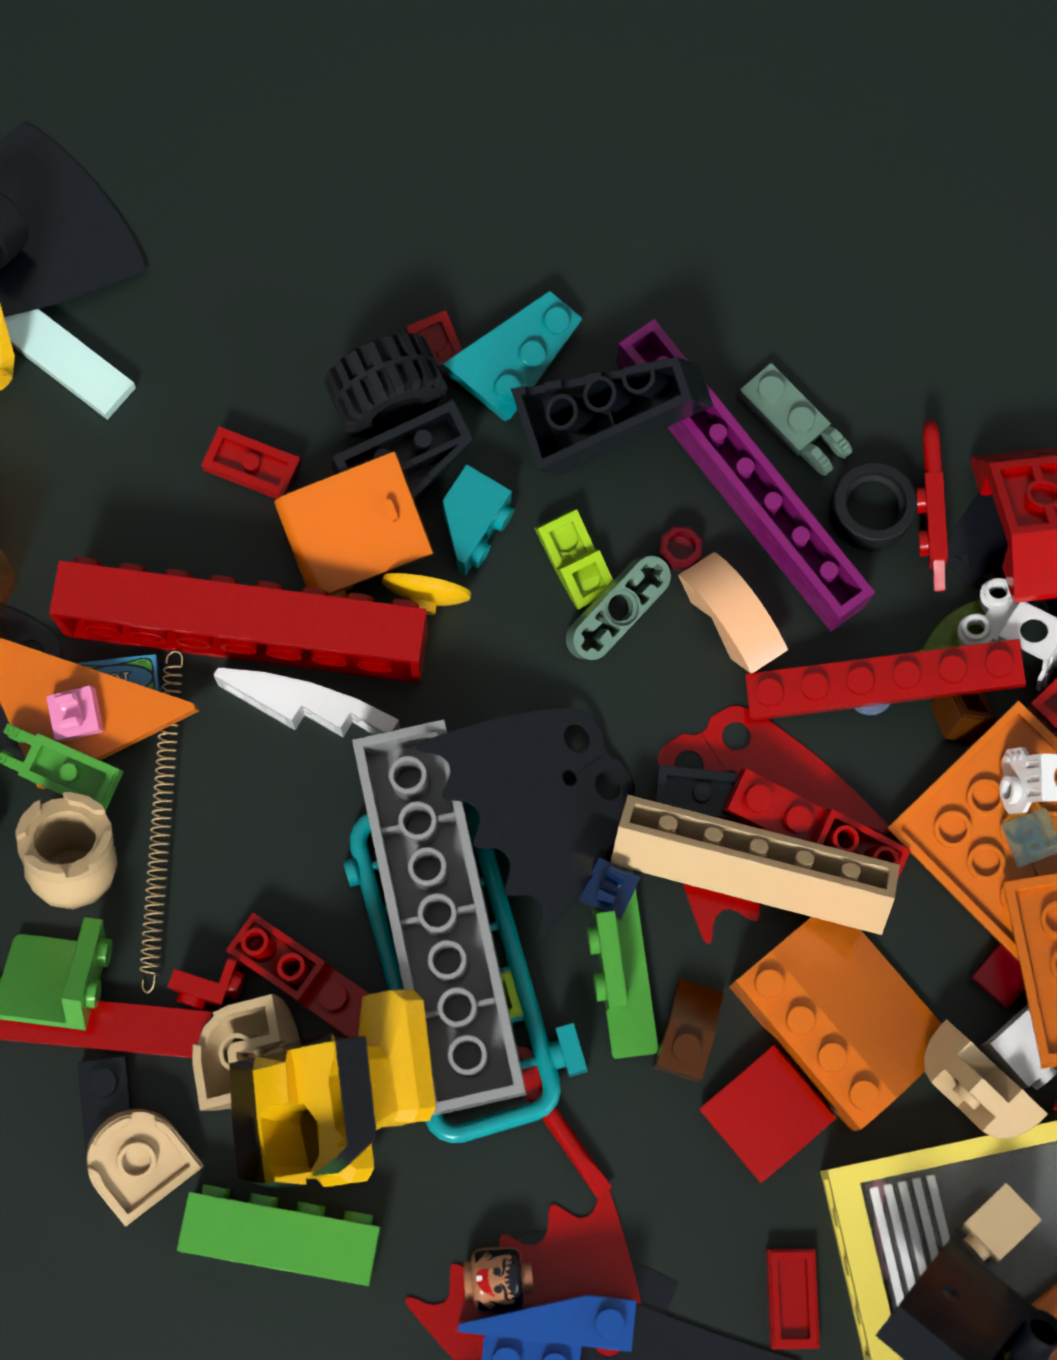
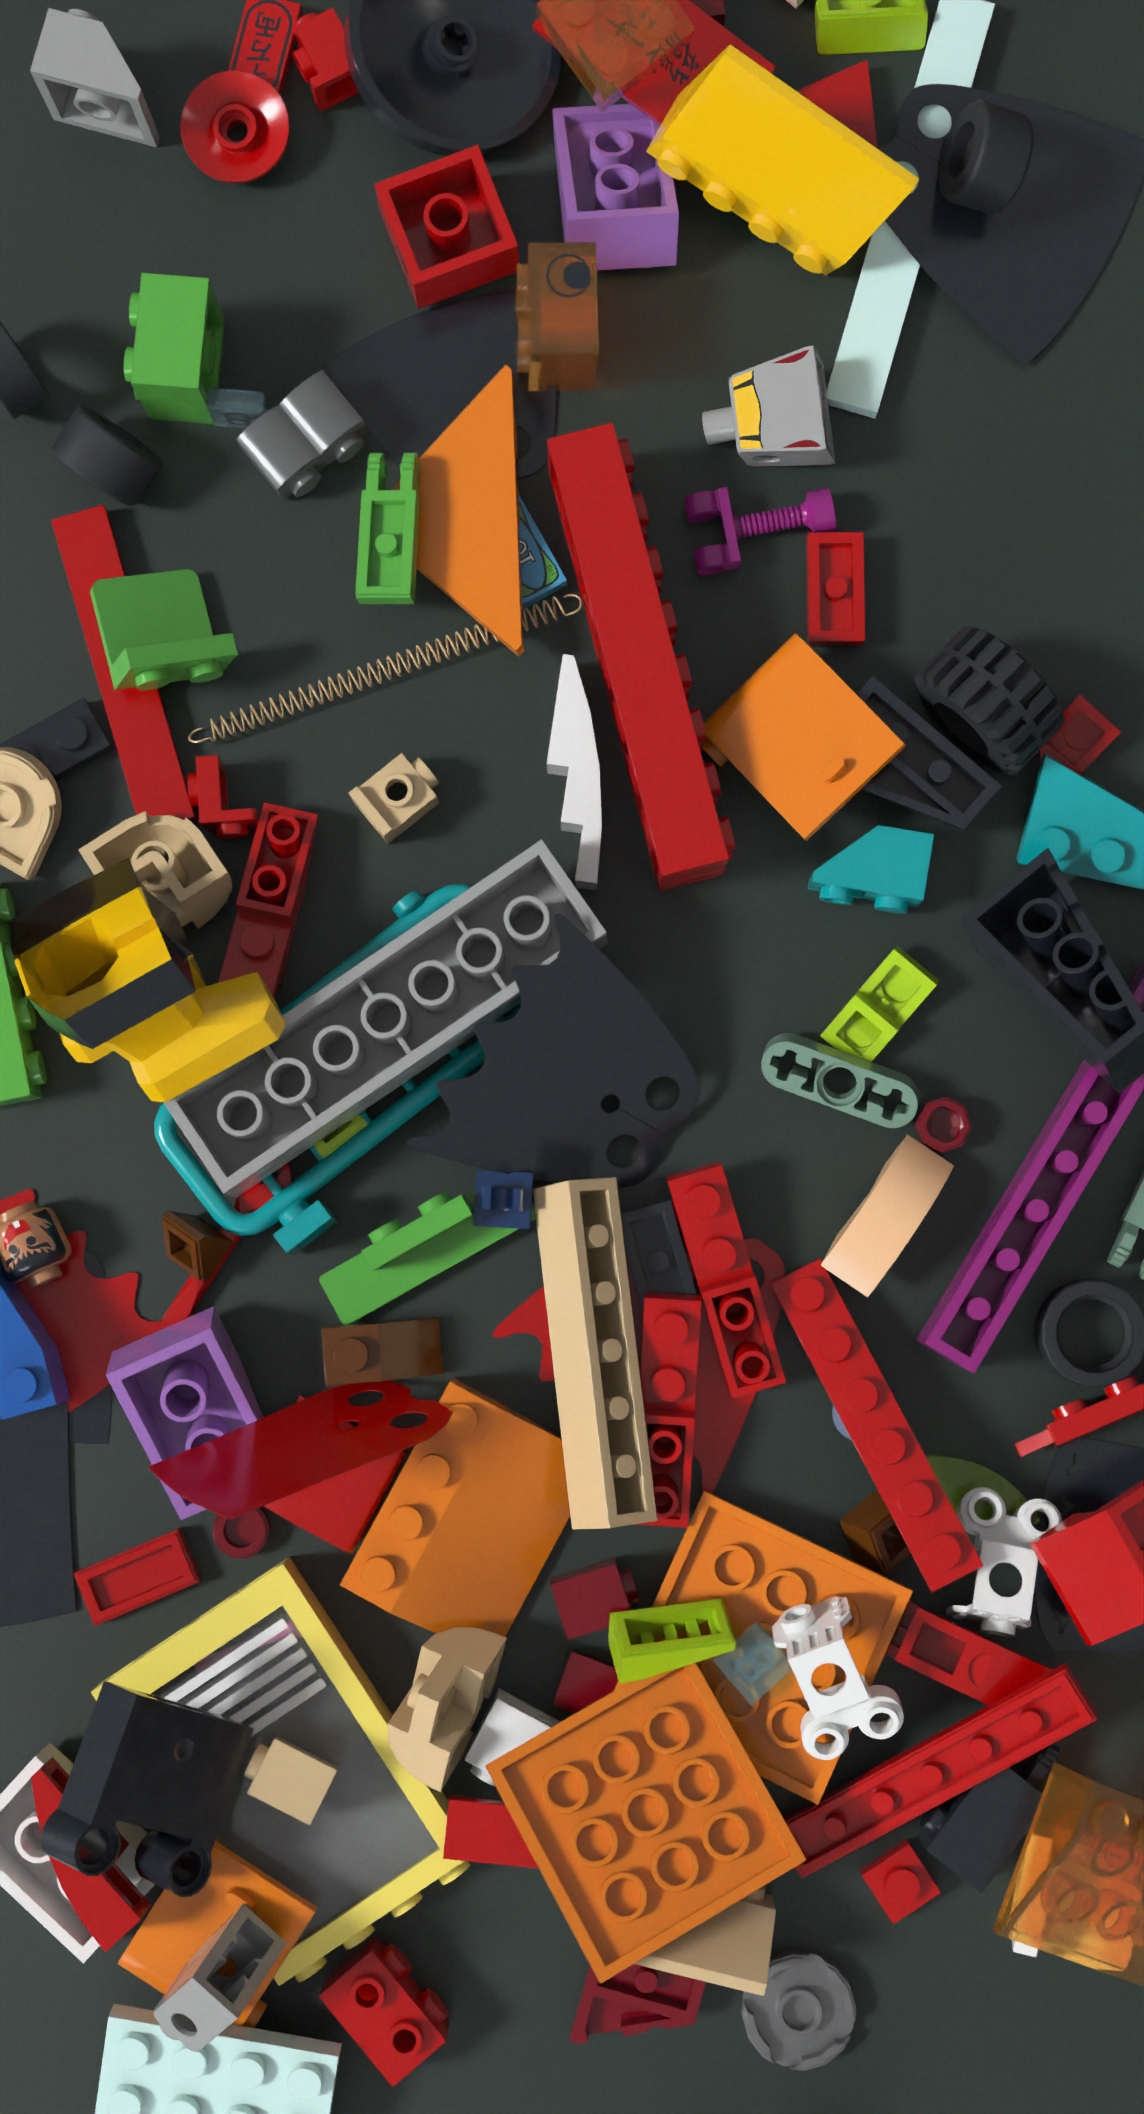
camera: 80 degrees right, 10 degrees up
(67, 850) = (296, 580): tan tile -> none
(75, 714) = (457, 521): bright pink tile -> none
(102, 450) = (777, 413): none -> light grey torso
(188, 454) = (815, 513): none -> magenta bar
(268, 863) = (394, 817): none -> tan brick
(426, 590) = (753, 851): yellow dish -> none
(549, 1146) = (193, 1244): none -> reddish brown slope
(682, 1196) = (183, 1390): none -> medium lavender slope
(730, 747) = (725, 1279): none -> red slope
(749, 1113) = (297, 1448): none -> red piece
(785, 1199) = (242, 1535): none -> dark red tile
(937, 942) = (590, 1595): none -> dark red brick
(996, 921) = (654, 1658): none -> lime slope

